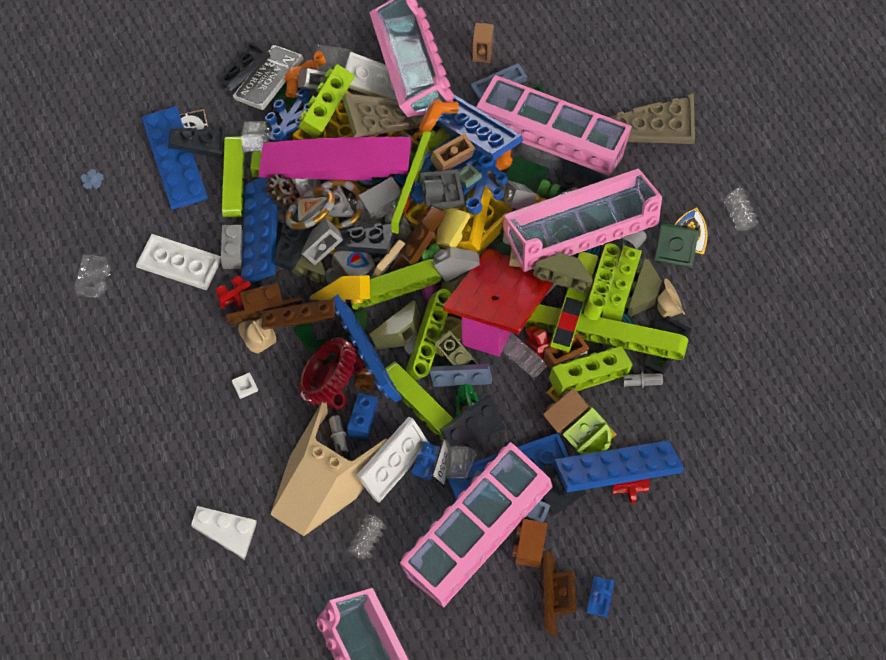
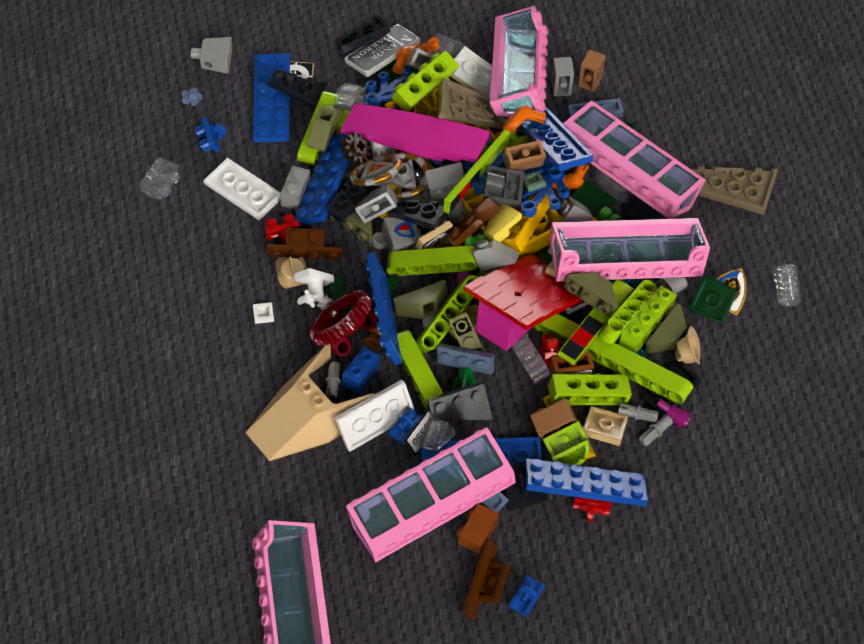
camera: 15 degrees right, 5 degrees down
(100, 128) = (214, 54): none -> light grey torso
(129, 222) = (212, 133): none -> blue hips
(226, 529) = (201, 434): white wing -> none
(241, 176) = (324, 126): none -> olive slope
(291, 351) = (316, 281): none -> white piece
(298, 314) = (333, 262): reddish brown bracket -> none
(347, 287) = (386, 250): yellow slope -> none
(366, 537) = (325, 477): clear piece -> none
(456, 56) = (562, 76): none -> light grey brick
(616, 402) = (605, 425): none -> tan tile
(665, 392) = (655, 430): none -> light grey axle
(681, 371) = (678, 415): none -> magenta cone

